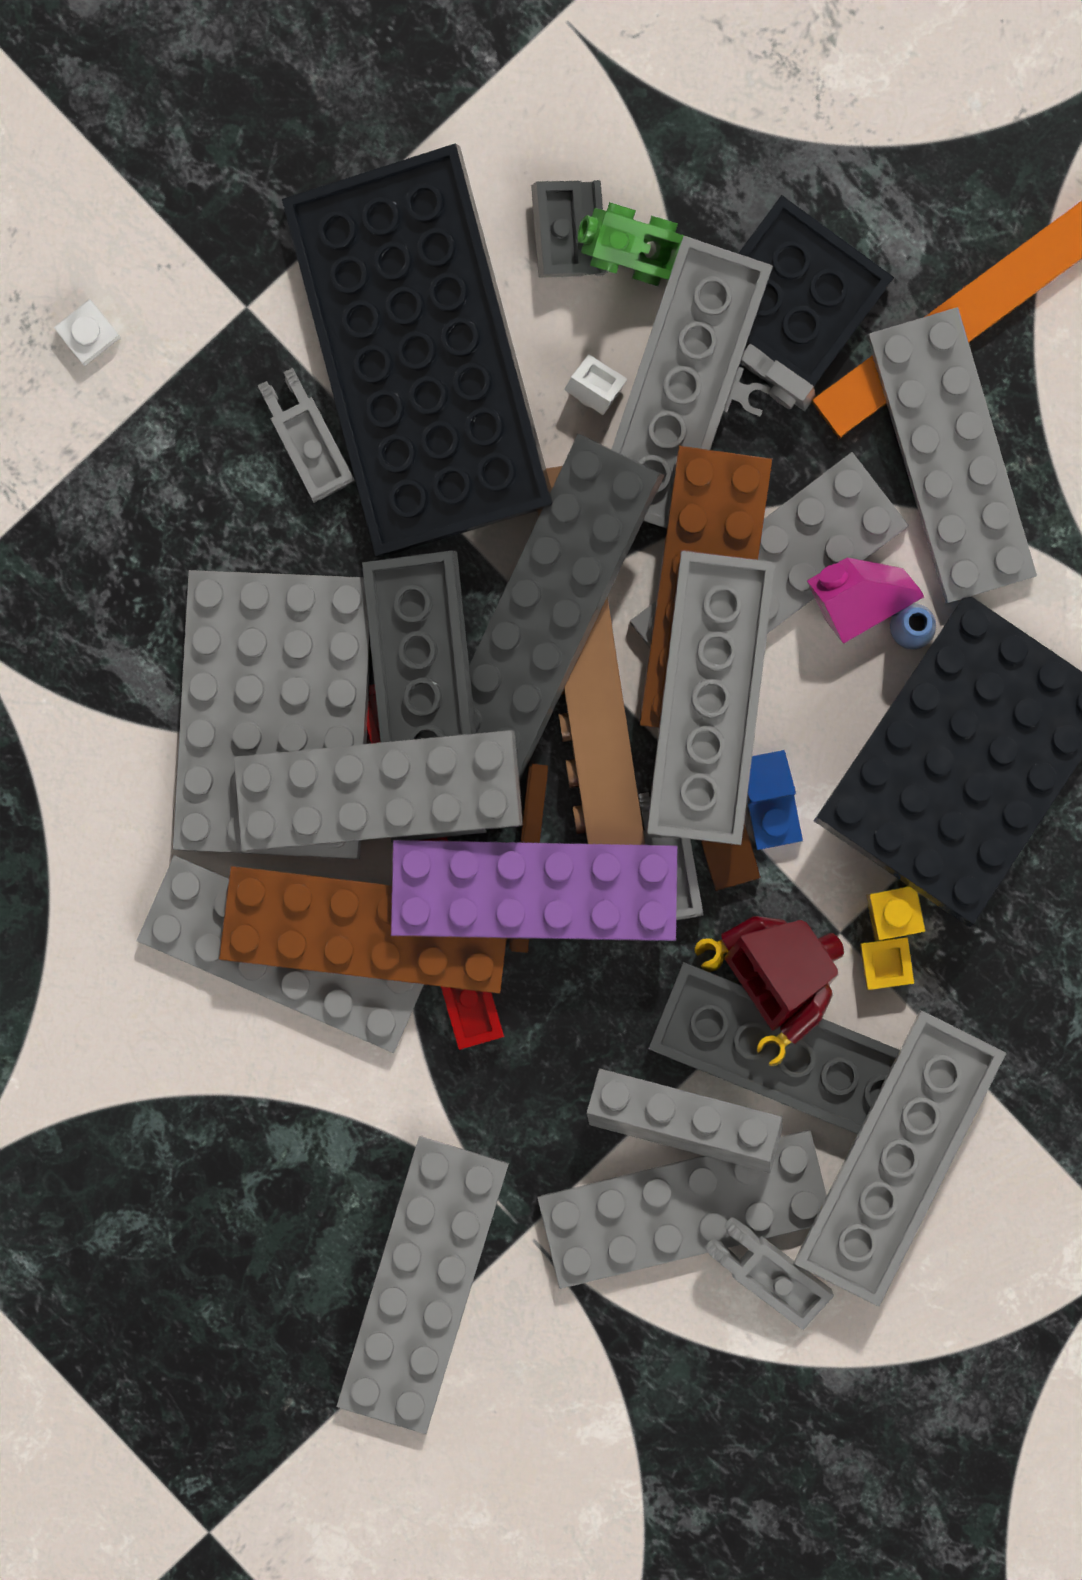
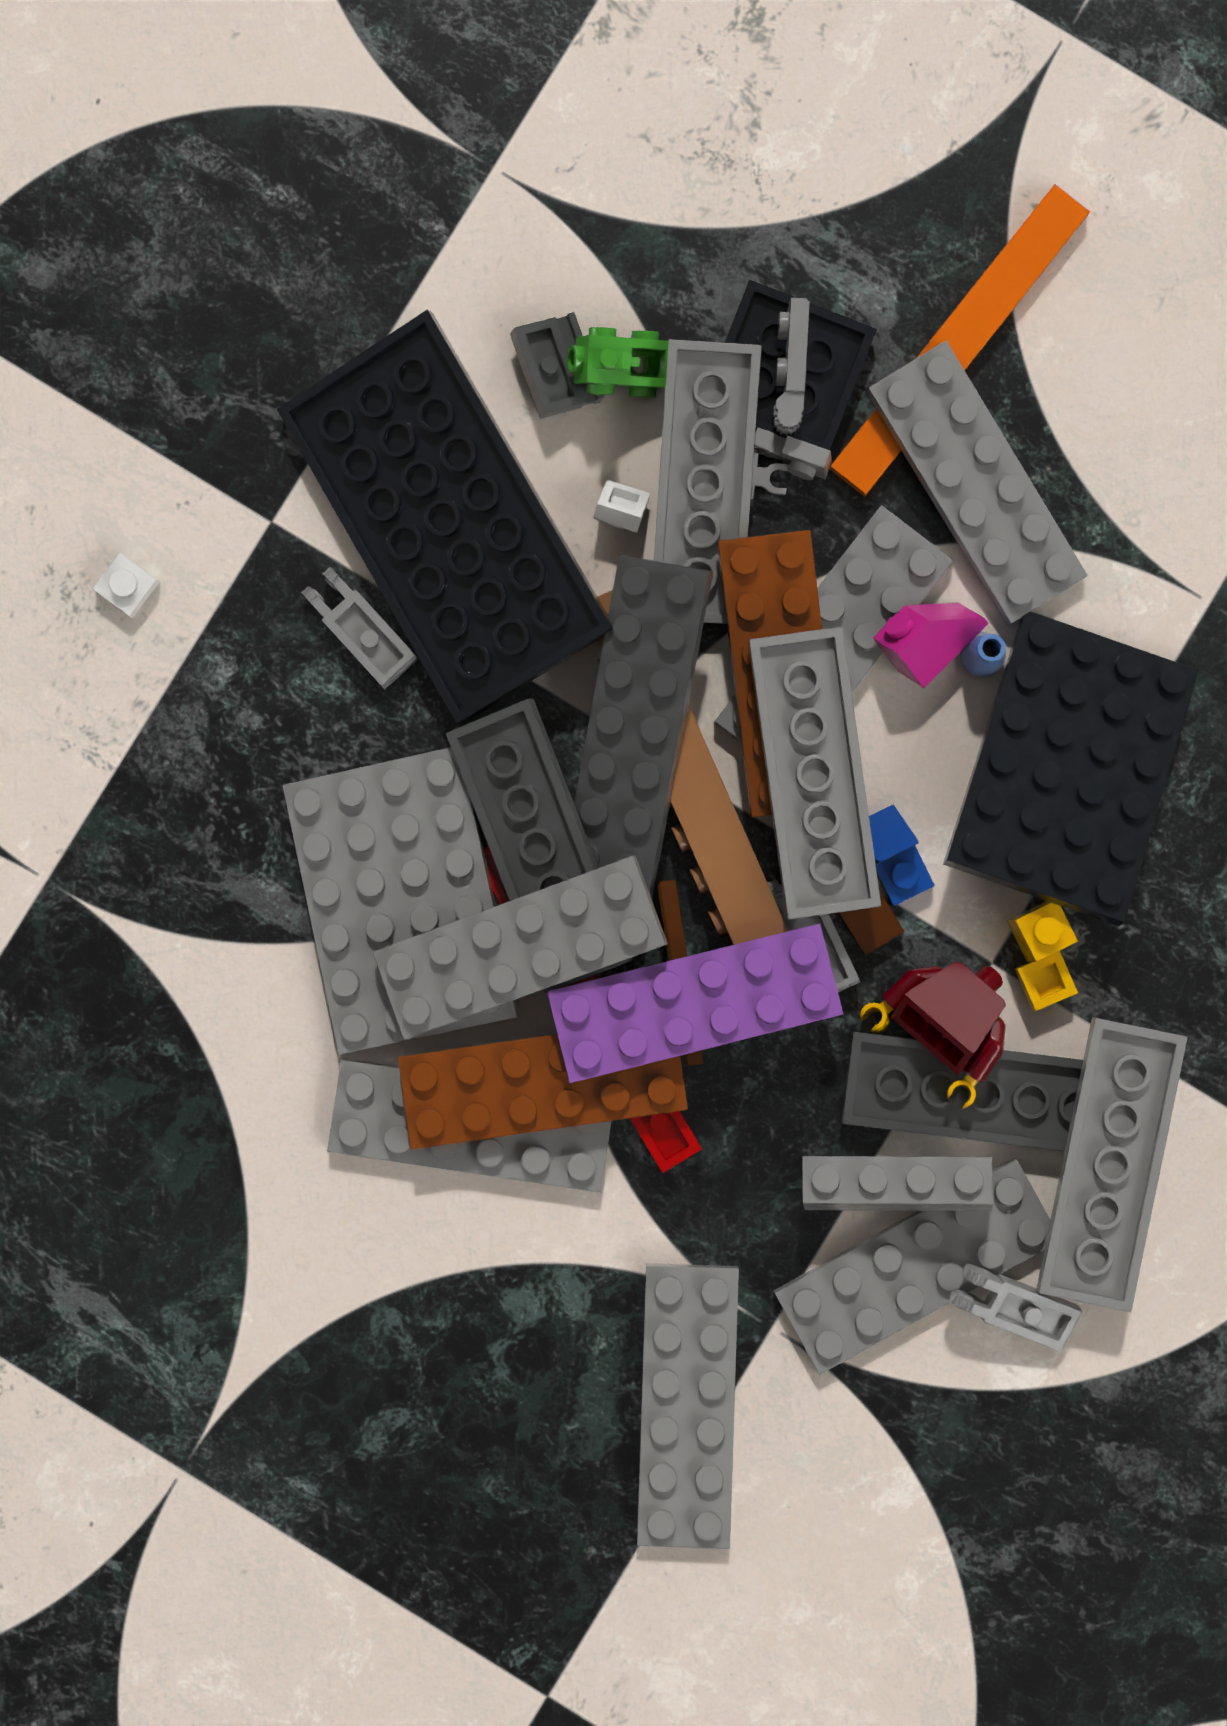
camera: 20 degrees left, 0 degrees up
(797, 296) = (792, 368): none -> light grey hinge

